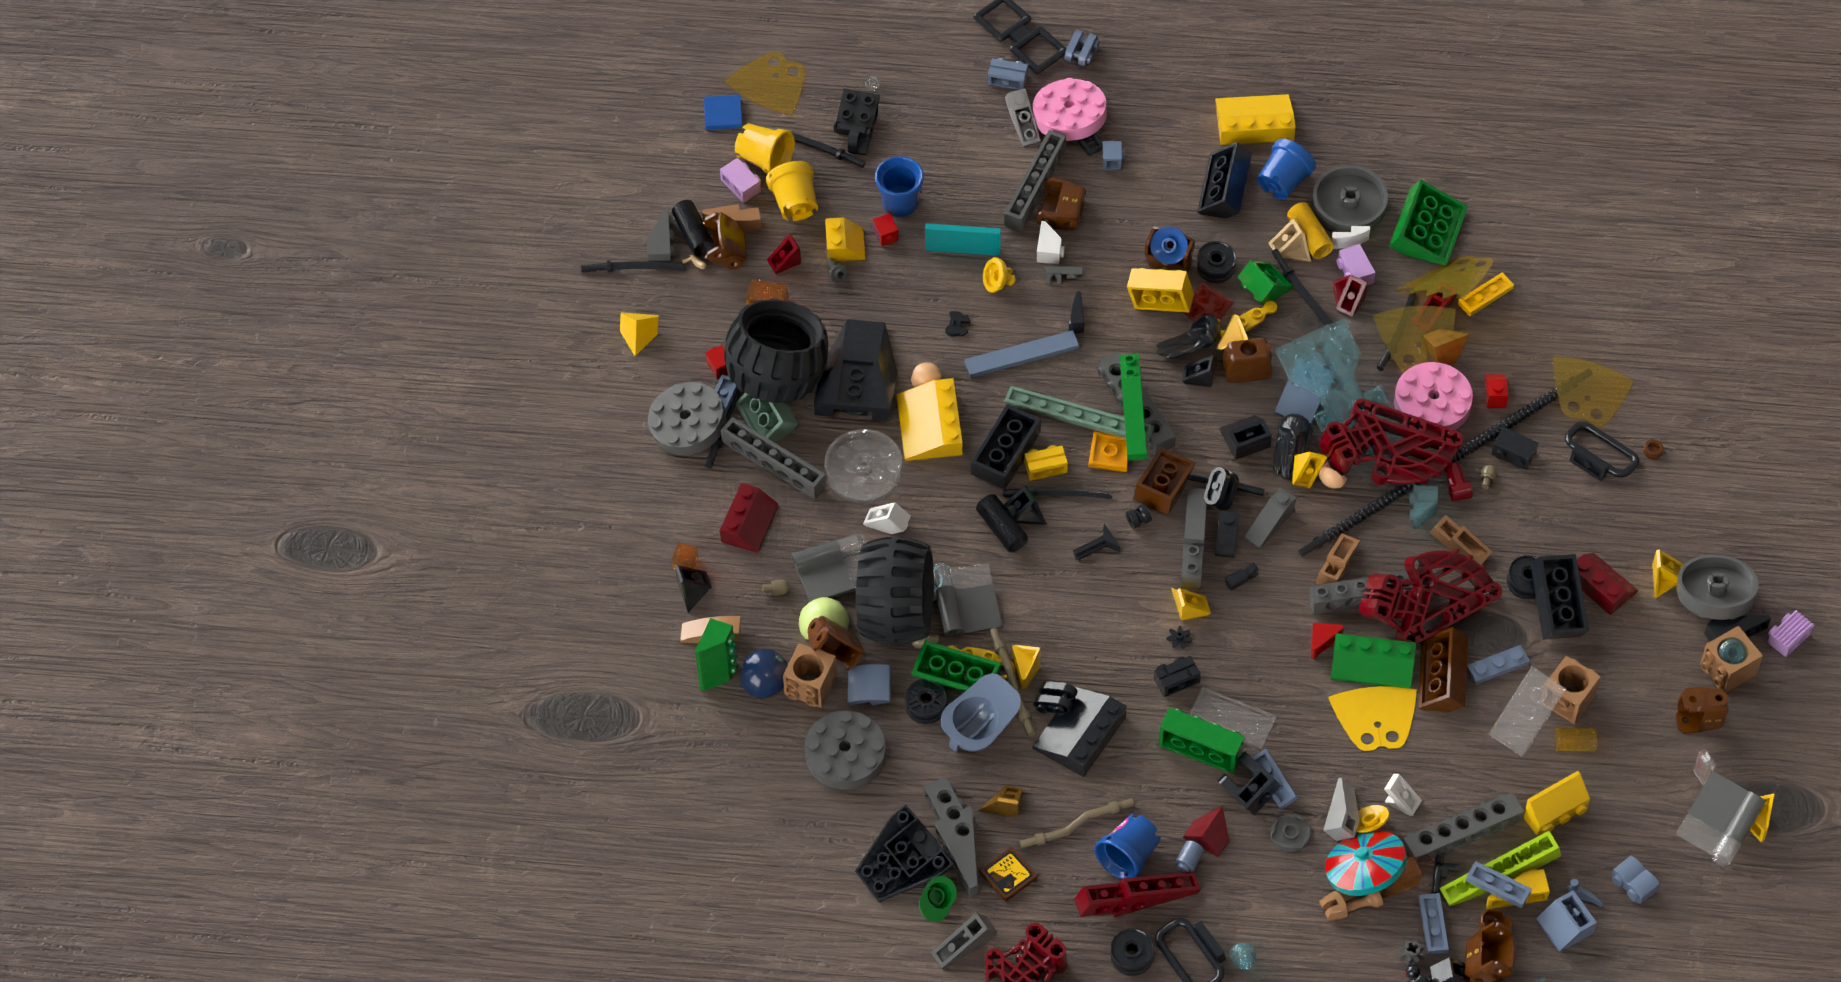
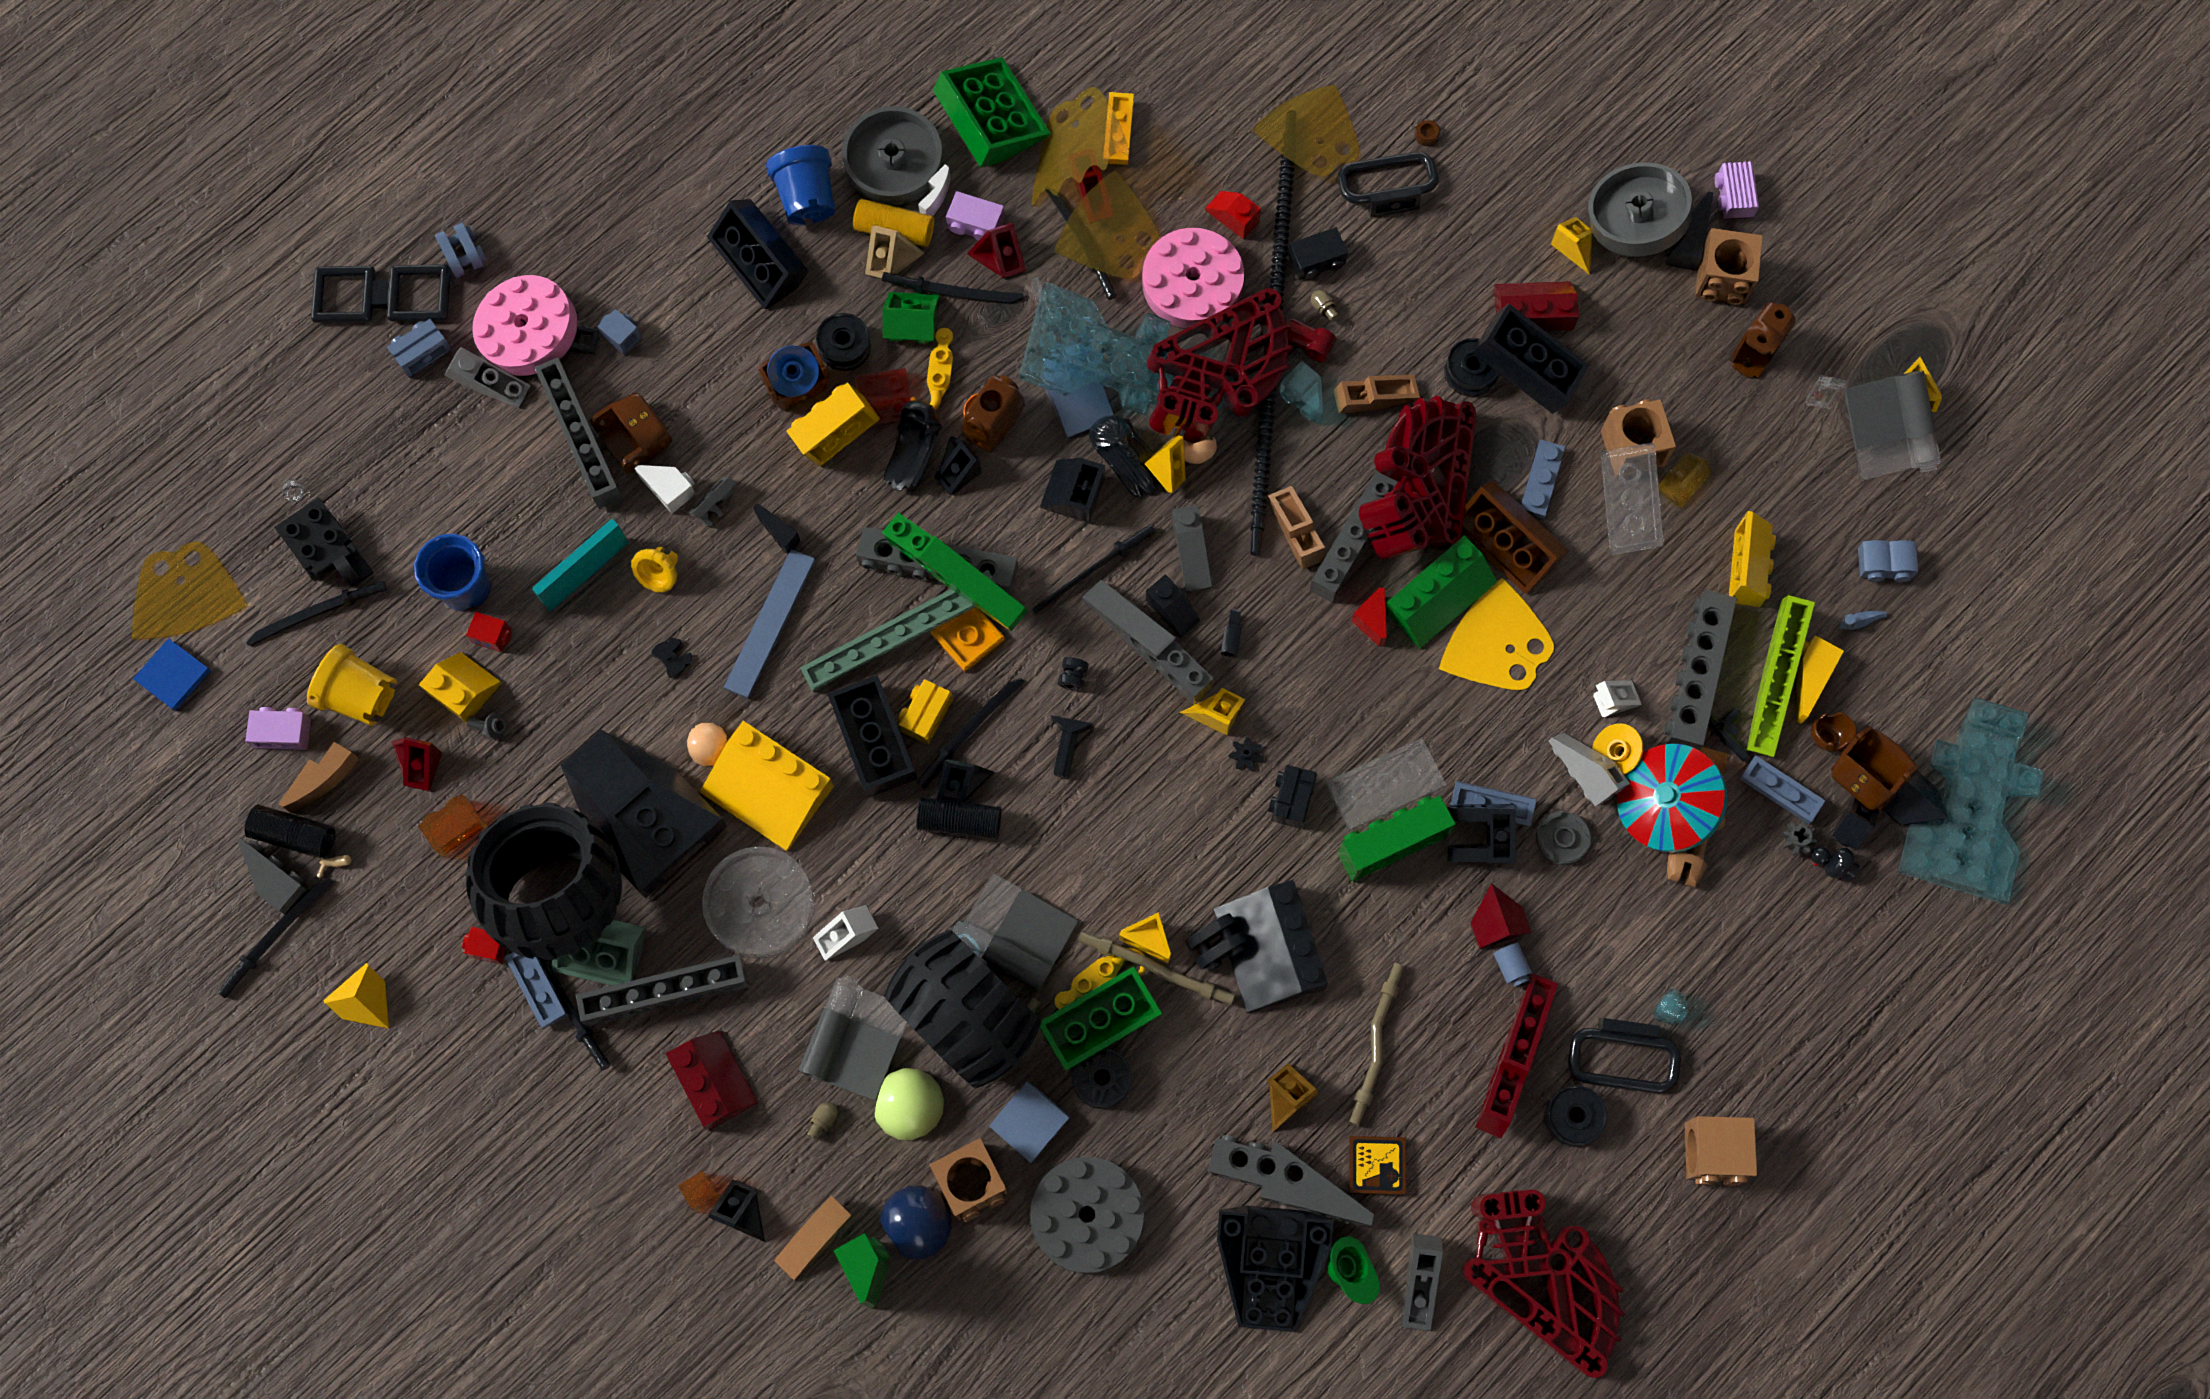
camera: 50 degrees left, 15 degrees up
(687, 418) = (499, 1038): dark grey piece -> none
(728, 241) = (346, 810): reddish brown piece -> none
(765, 146) = (267, 671): yellow piece -> none
(832, 639) = (952, 1116): reddish brown piece -> none
(980, 713) = (1177, 1039): sand blue piece -> none
(1127, 847) = (1460, 1019): blue piece -> none
(1163, 481) = (1056, 613): reddish brown slope -> none
(1221, 488) = (1119, 566): black brick -> none
(1233, 332) = (949, 400): yellow slope -> none
(1255, 119) = (709, 160): yellow slope -> none
(1445, 345) = (1145, 215): pearl gold slope -> none
(1498, 884) = (1804, 693): sand blue plate -> none
(1567, 921) = (1885, 662): sand blue slope -> none
(1732, 651) = (1733, 258): clear light blue cone -> none

